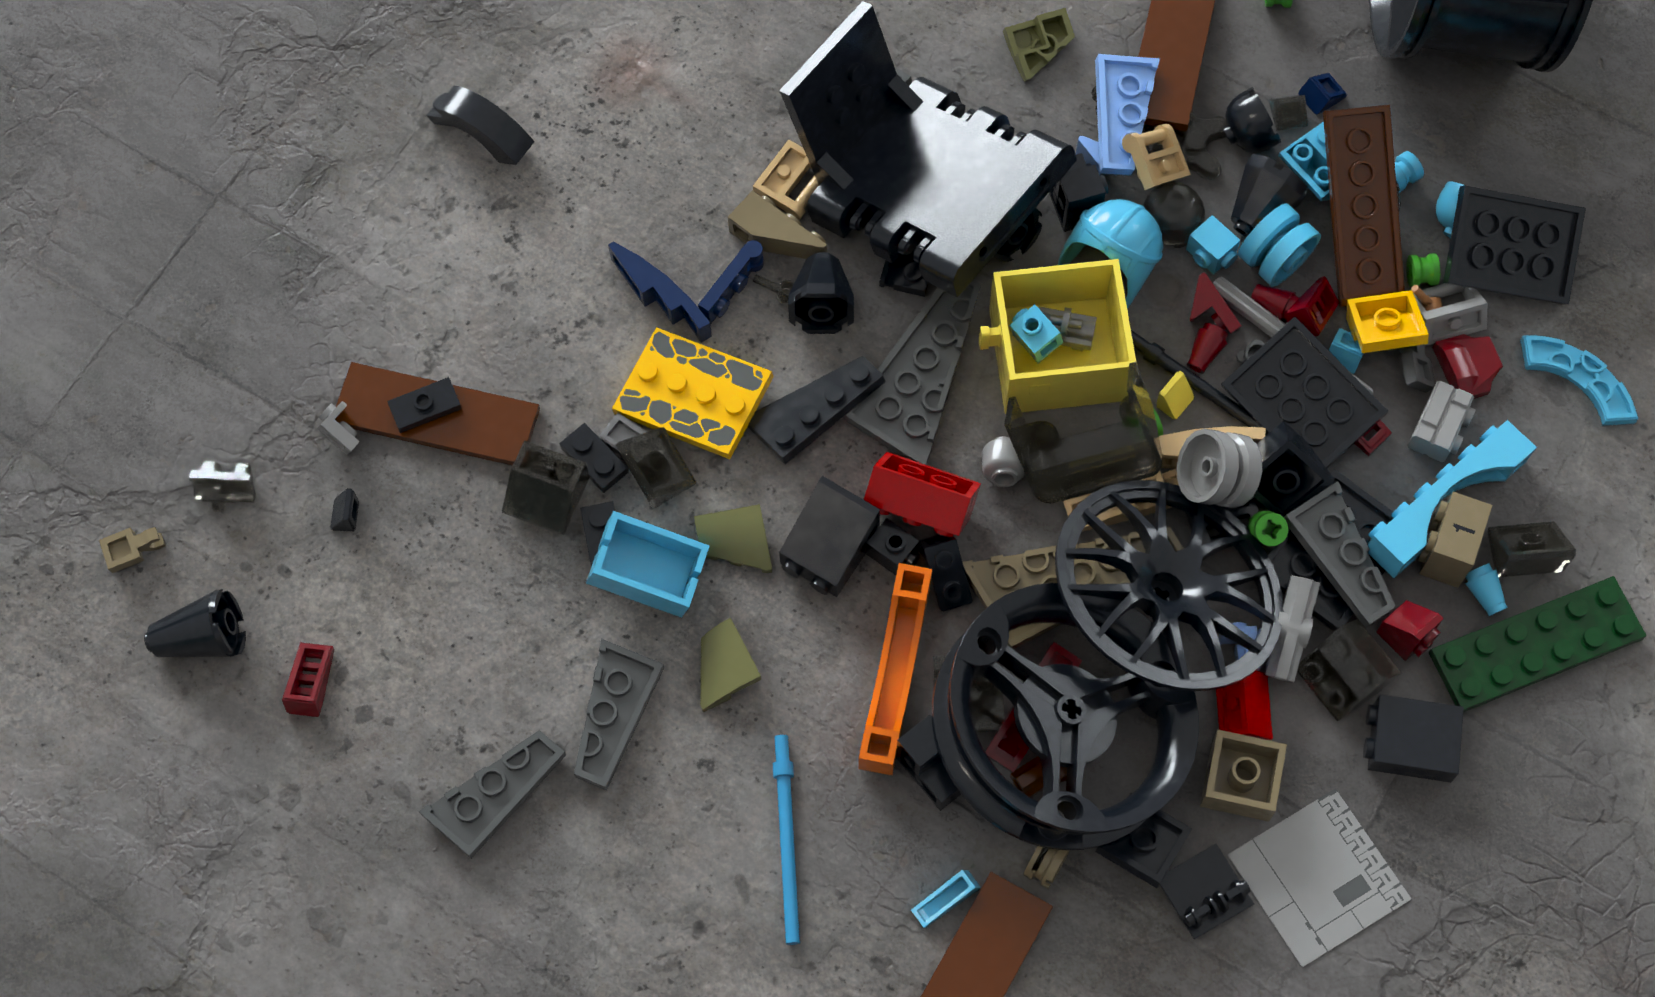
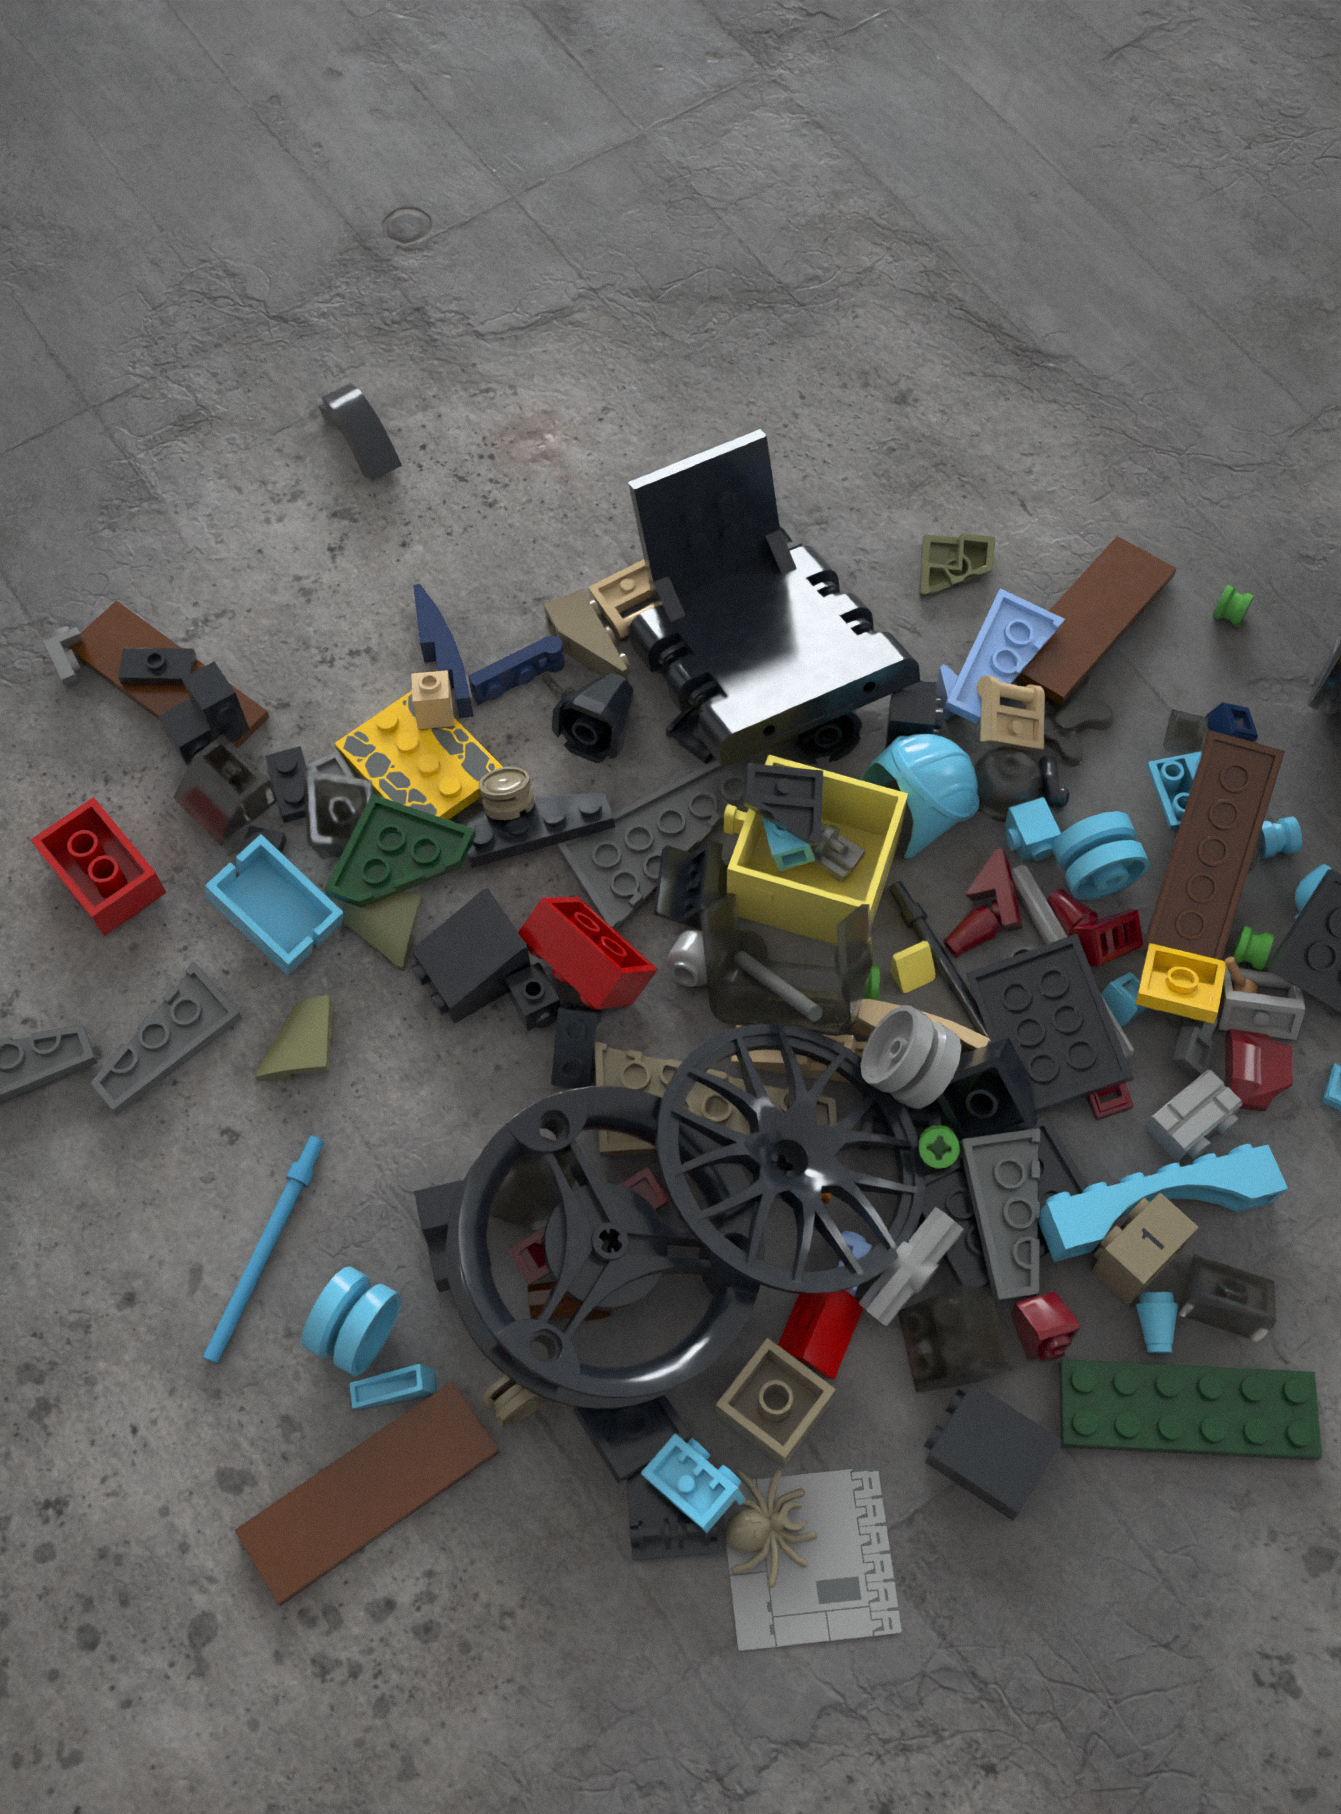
camera: 25 degrees right, 5 degrees down
(345, 511) = (31, 737): black slope -> none
(477, 595) = (98, 866): none -> red brick
(500, 431) = (206, 715): none -> black brick
(682, 337) = (432, 699): none -> tan brick
(723, 477) = (395, 851): none -> dark green plate
(785, 390) = (506, 793): none -> dark tan wheel
(894, 861) = (351, 1321): none -> medium azure wheel
(895, 669) = (507, 1073): orange arch -> none
(973, 403) = (690, 883): none -> black bracket
(1028, 303) = (786, 798): none -> black wing
(1089, 456) = (778, 986): none -> dark grey bar
(1211, 204) = (1051, 791): none -> black arm
(1215, 860) = (692, 1482): none -> medium azure bracket
(1250, 123) = (1133, 723): black cylinder -> none
(1264, 190) = (1115, 789): black cone -> none
(1279, 868) = (766, 1527): none -> dark tan animal

